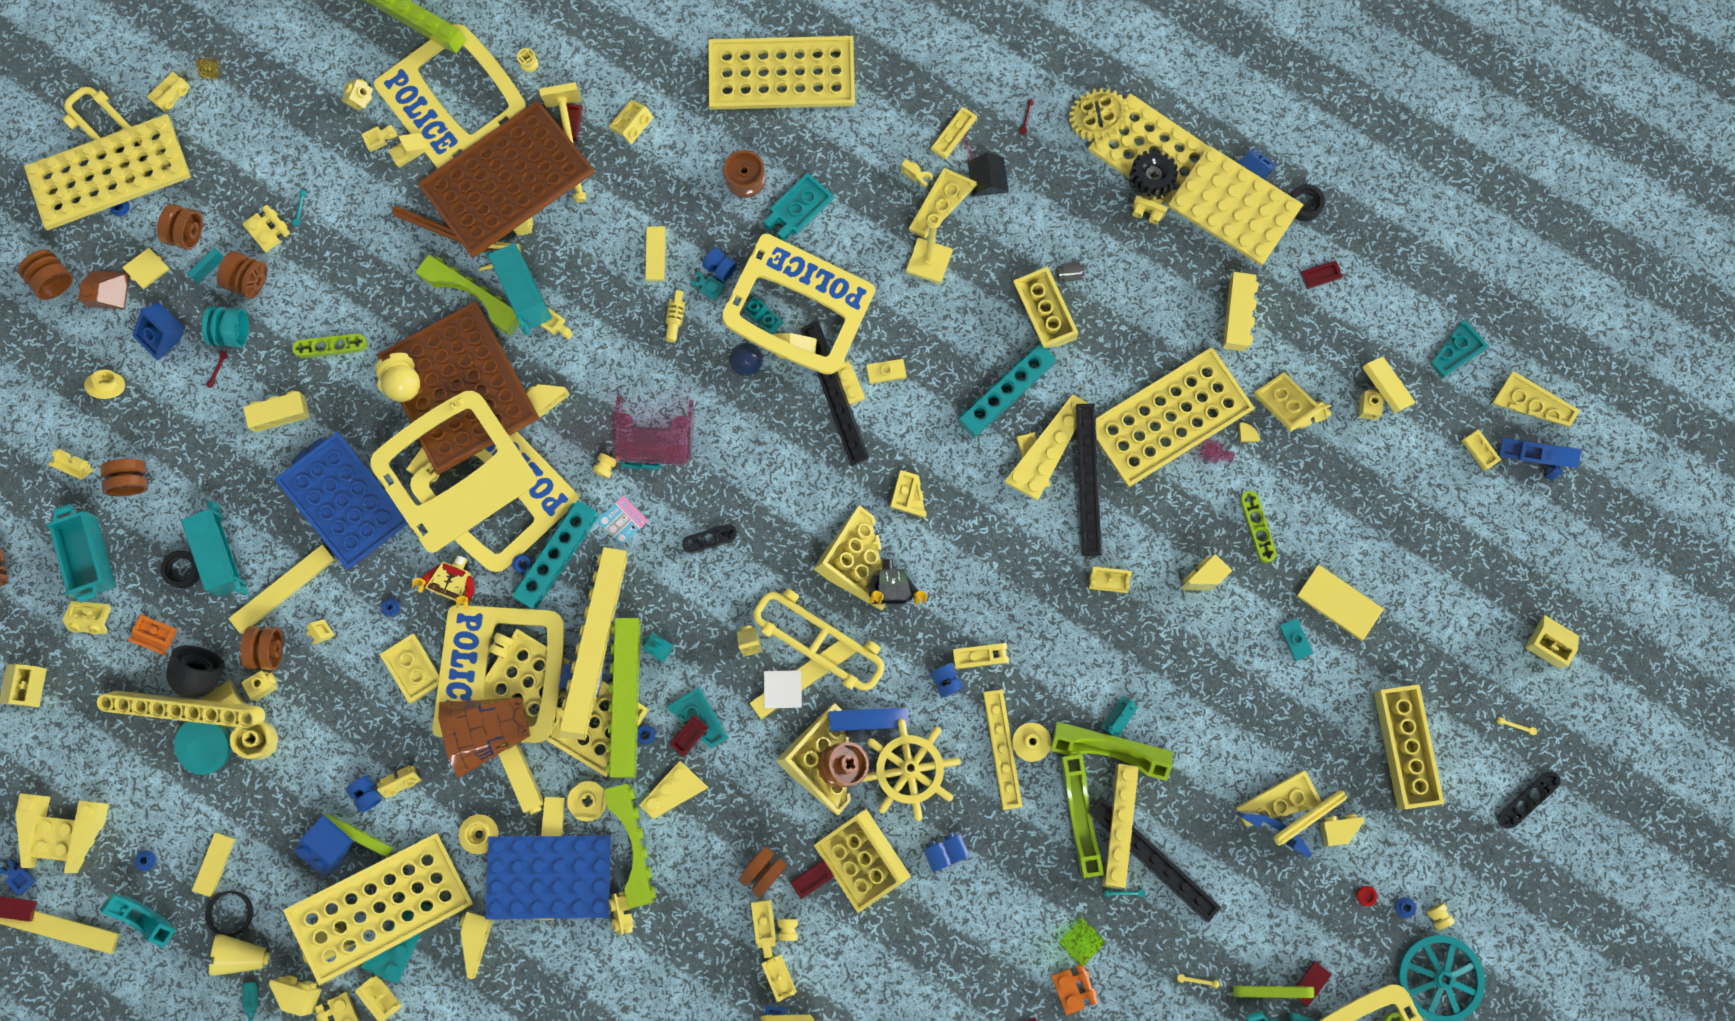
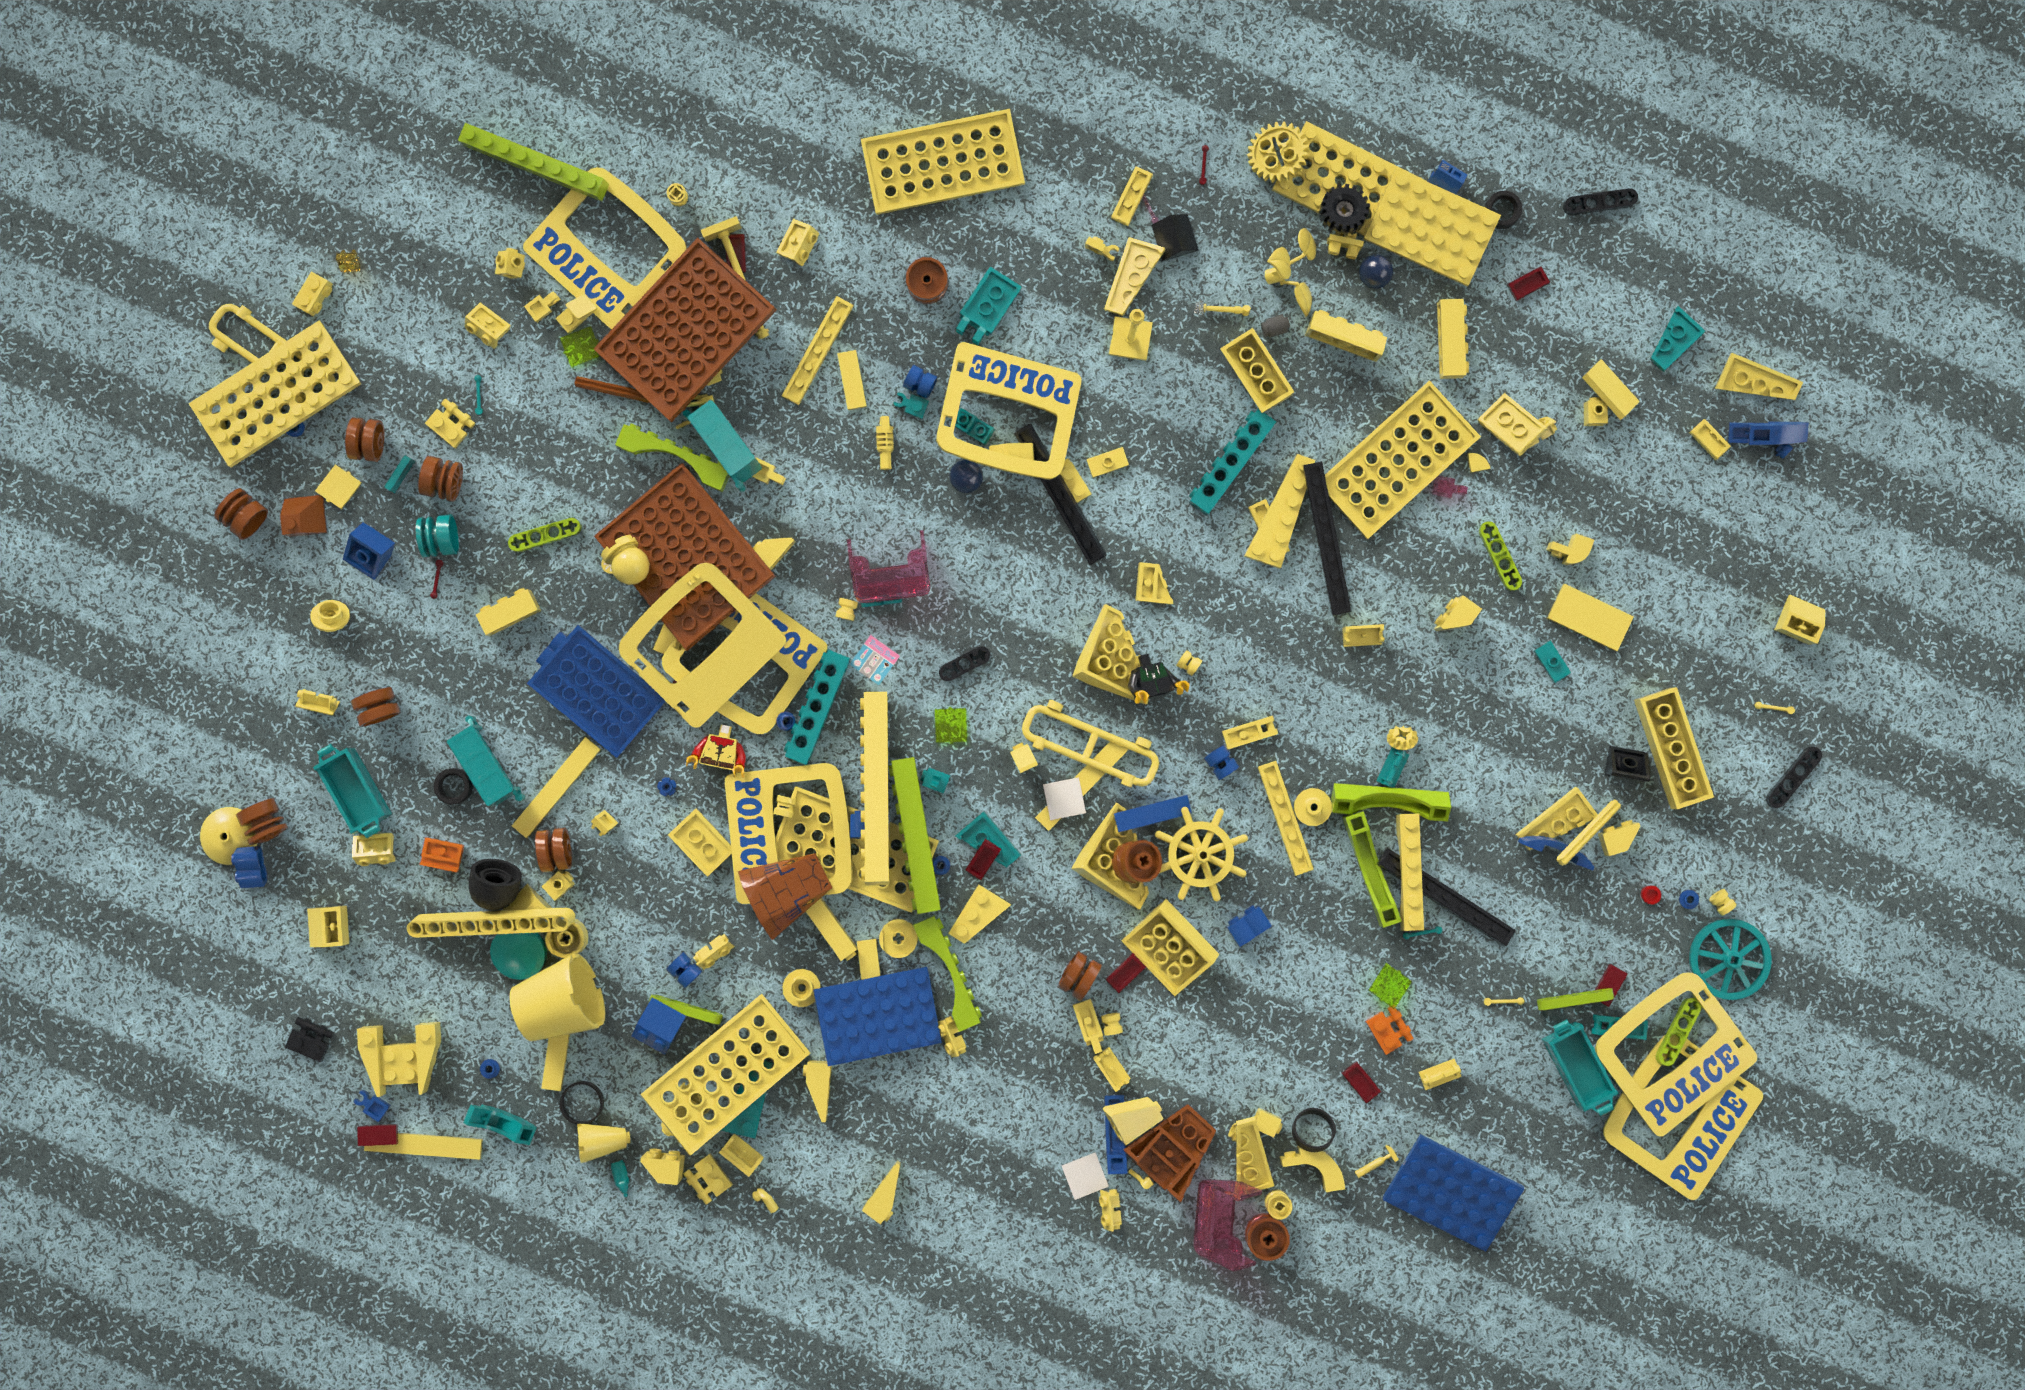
camera: 15 degrees left, 10 degrees up
(227, 800) = (558, 1001): none -> light yellow cone
(321, 145) = (486, 325): none -> light yellow bracket
(405, 180) = (580, 346): none -> clear neon green piece
(628, 222) = (817, 350): none -> light yellow tile
(684, 597) = (950, 725): none -> clear neon green piece
(935, 579) = (1193, 664): none -> light yellow wheel
(1001, 243) = (1201, 308): none -> light yellow piece
(1085, 206) = (1281, 262): none -> light yellow plant
(1127, 690) = (1399, 742): none -> light yellow gear
(1137, 292) = (1346, 335): none -> light yellow slope
(1175, 237) = (1376, 271): none -> dark blue piece
(1333, 535) = (1575, 552): none -> light yellow brick
(1359, 756) = (1628, 764): none -> black slope
(1400, 208) = (1600, 201): none -> black beam

